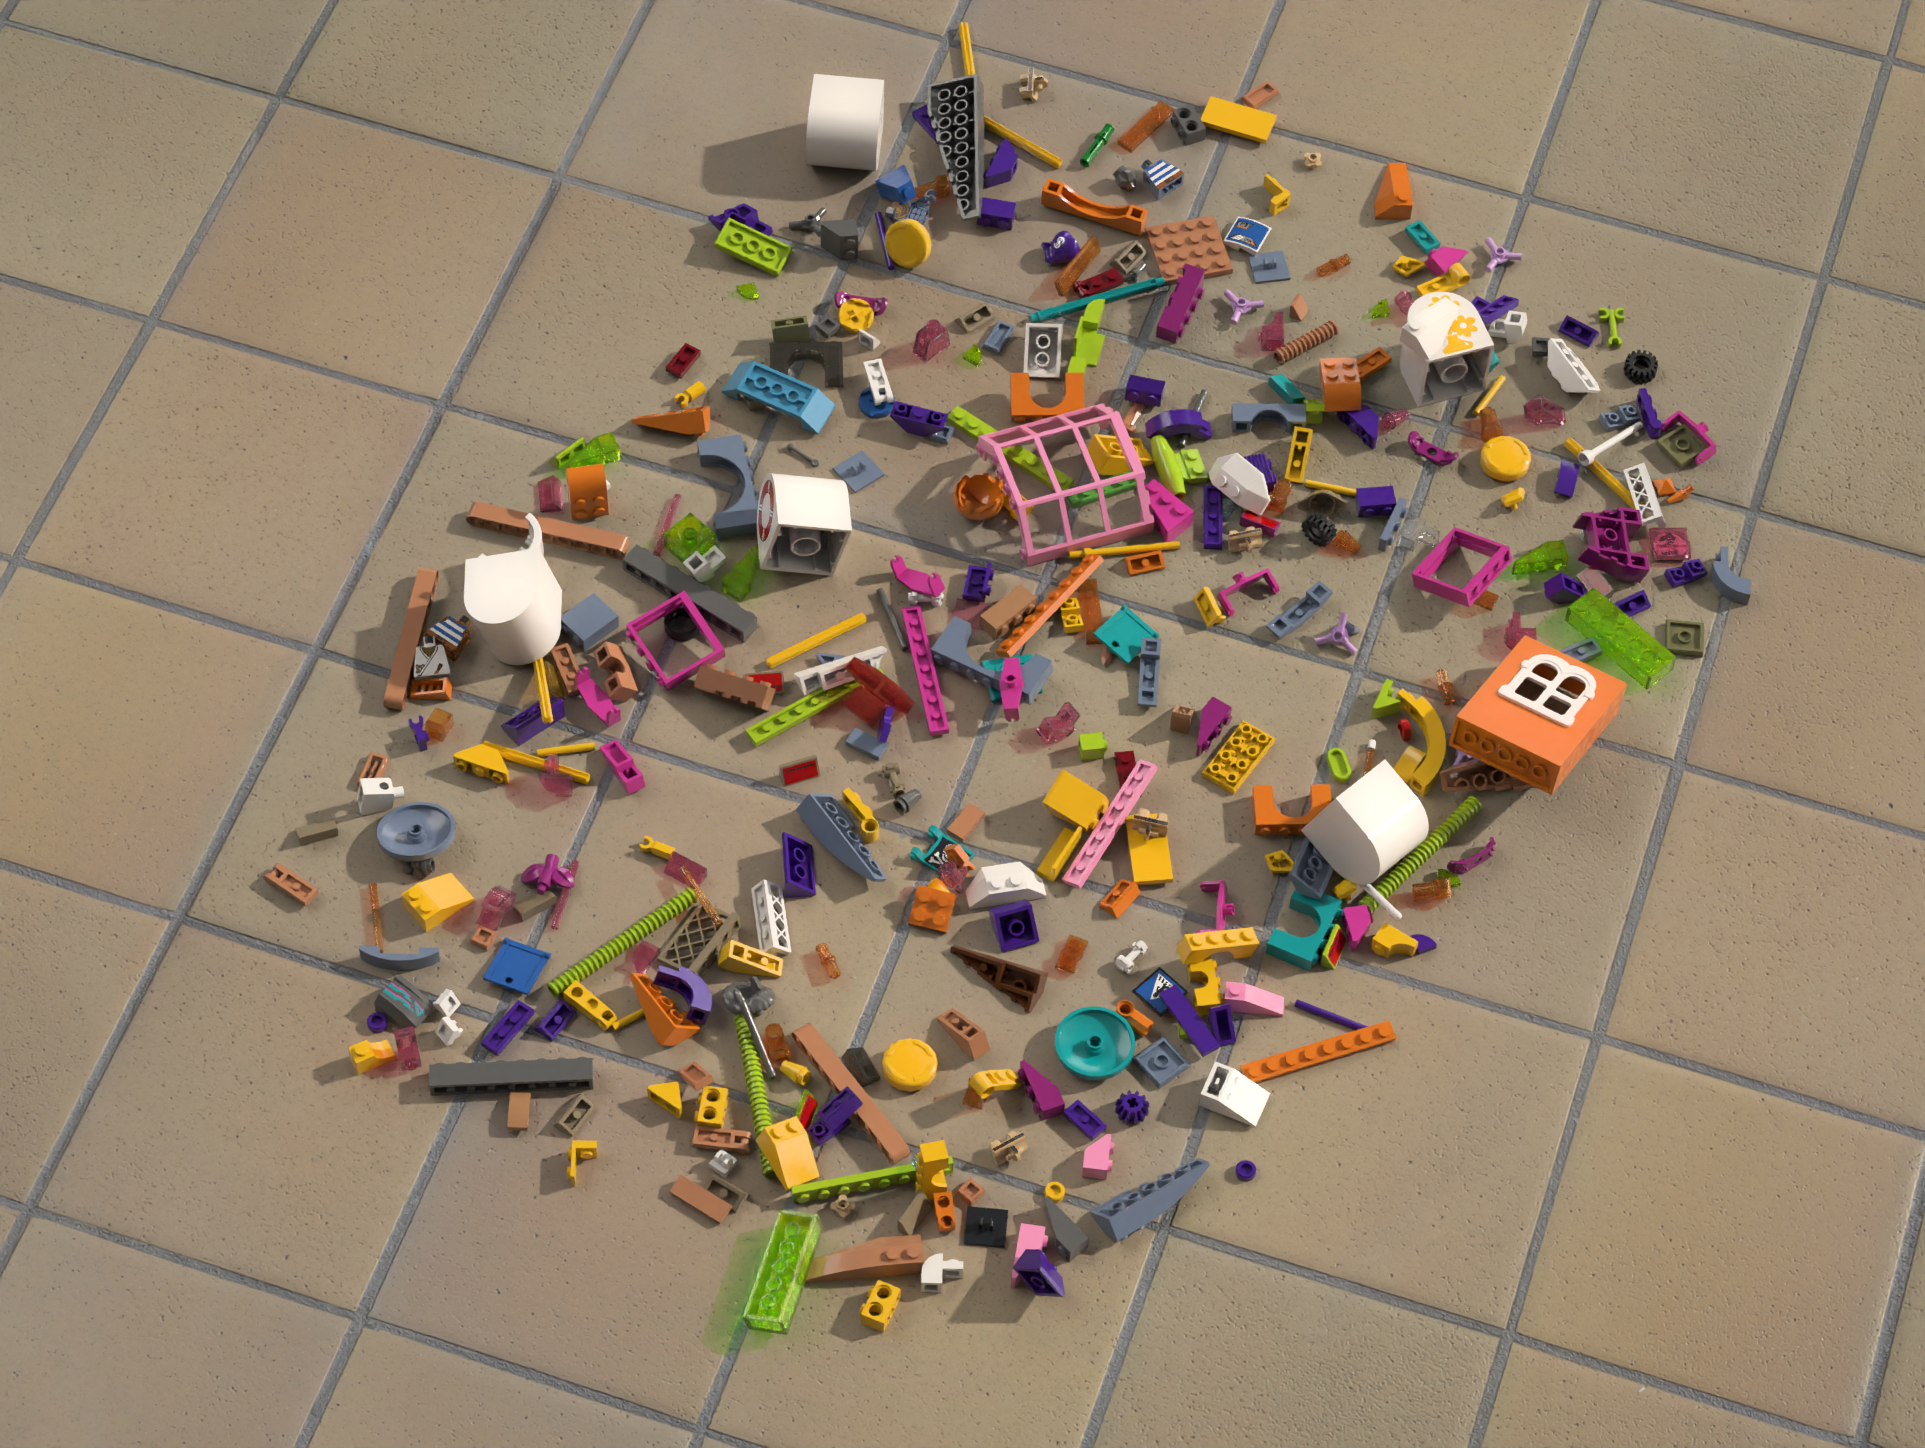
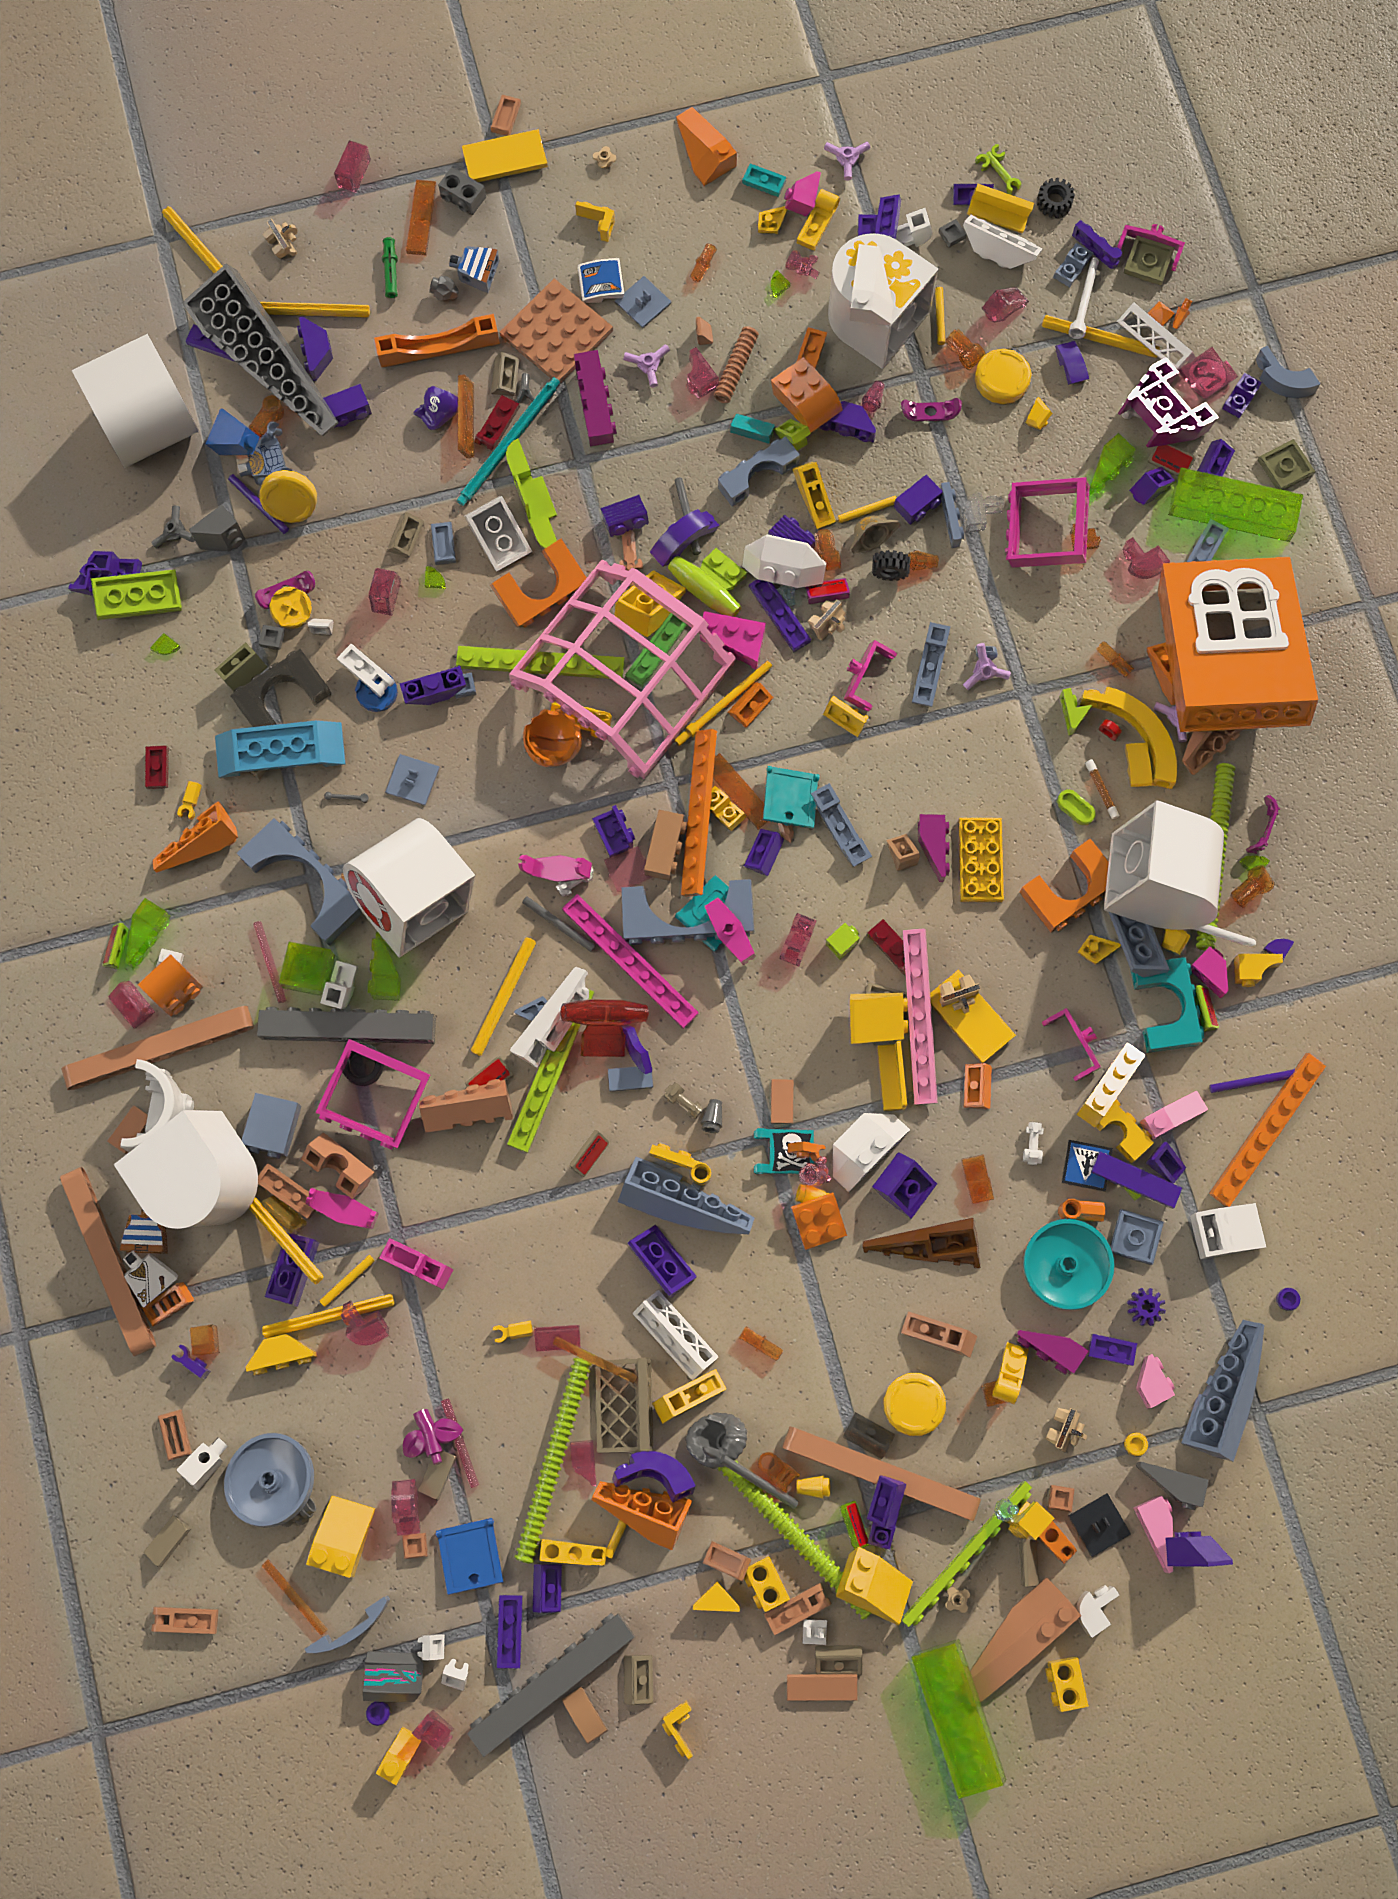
camera: 30 degrees left, 20 degrees up
(1079, 660) = (764, 852): none -> dark purple slope
(1119, 67) = (352, 166): none -> clear pink brick
(1590, 349) = (1000, 208): none -> yellow panel

